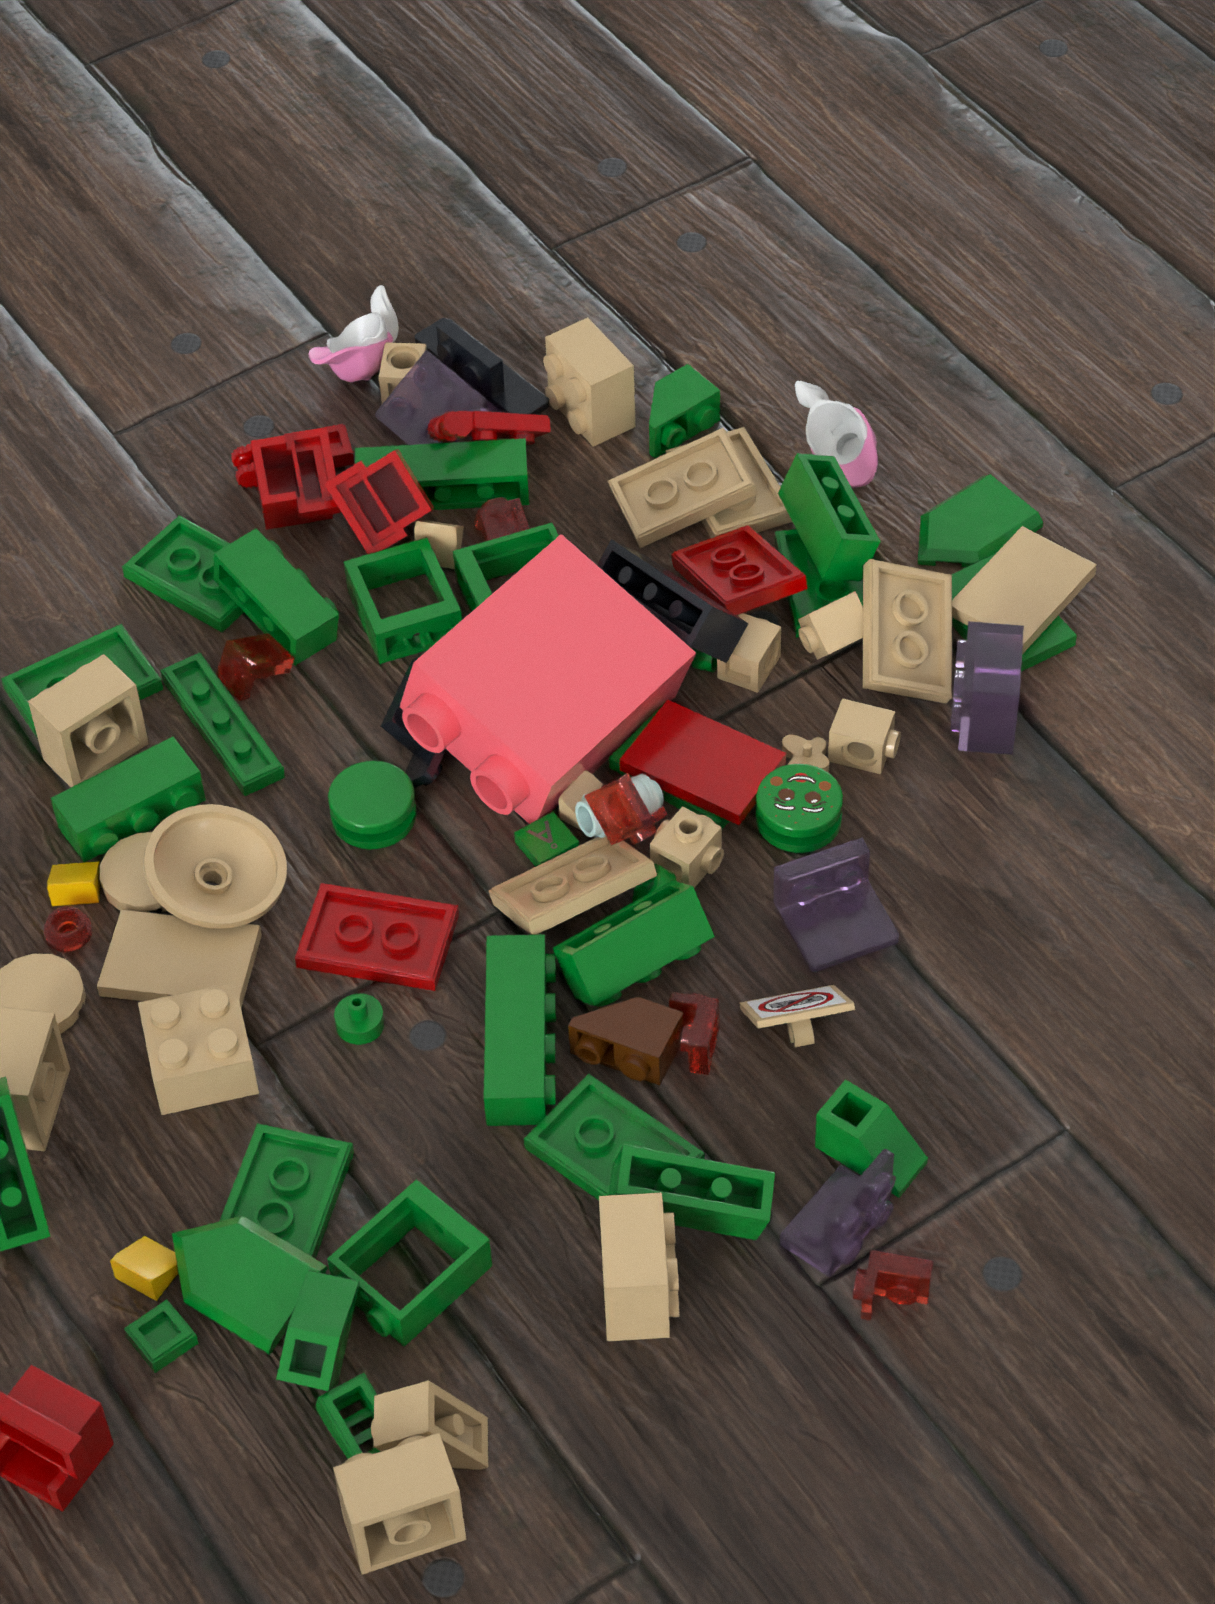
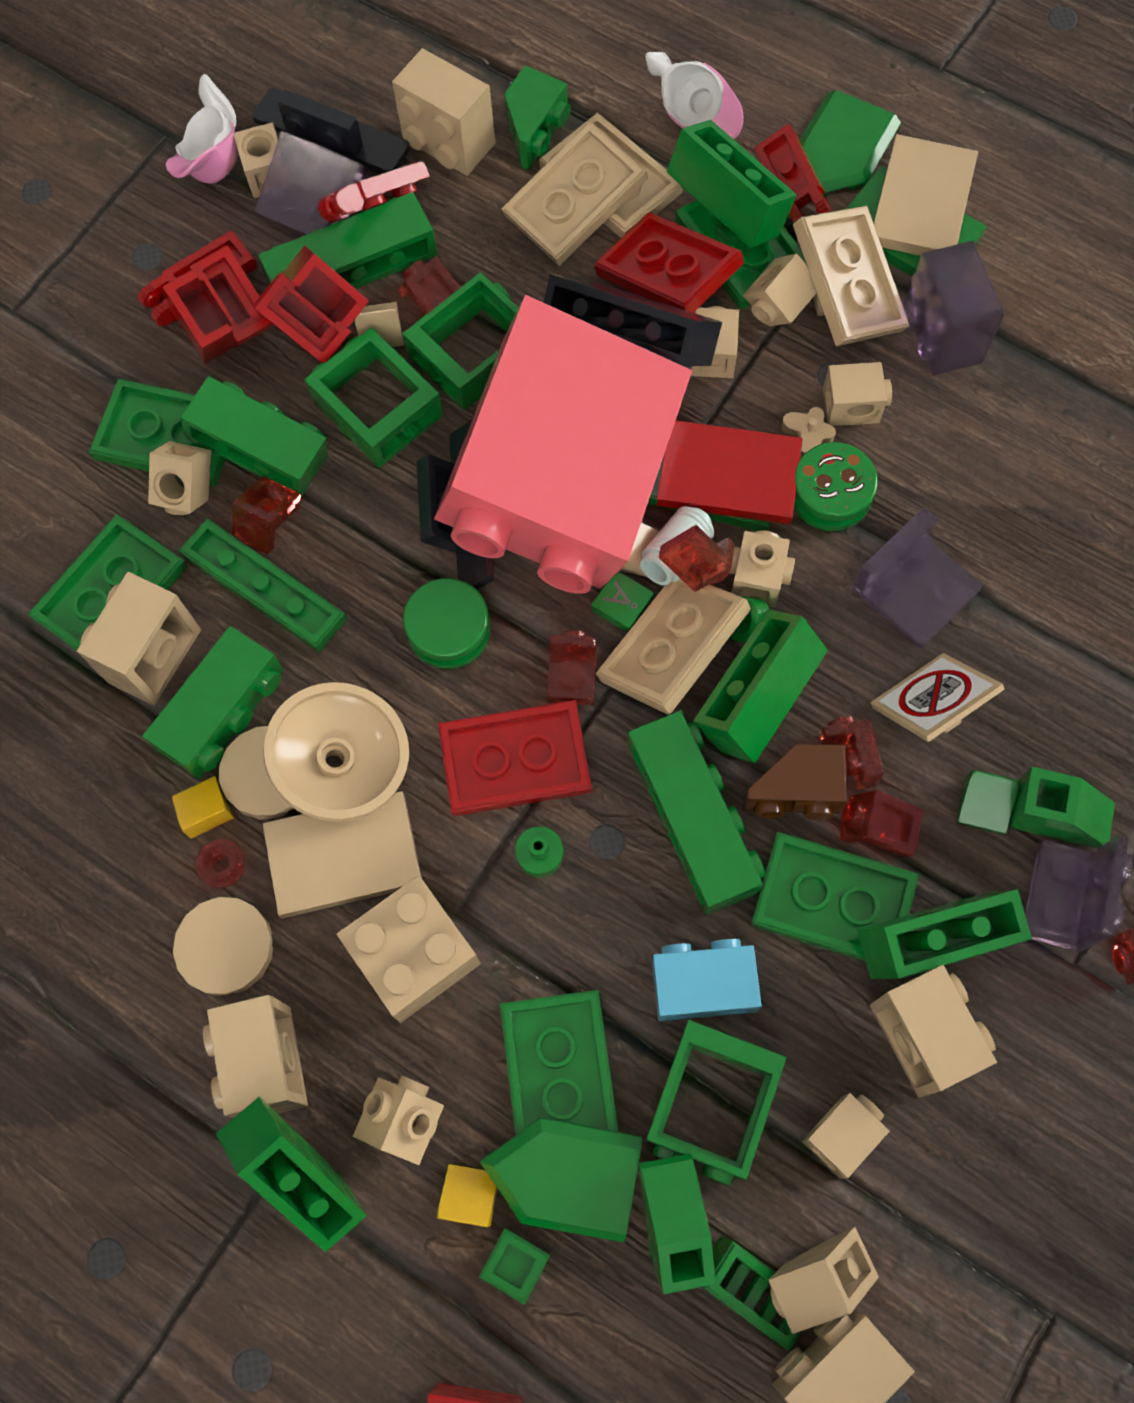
camera: 20 degrees left, 20 degrees up
(118, 1173) = (399, 1118): none -> tan brick
(206, 608) = (191, 466): none -> tan brick
(455, 1165) = (705, 981): none -> medium azure brick
(469, 877) = (572, 668): none -> clear red bracket
(516, 1332) = (847, 1134): none -> tan brick
(692, 1097) = (881, 822): none -> clear red bracket
(797, 1115) = (987, 801): none -> green slope
(904, 528) = (788, 162): none -> red hinge

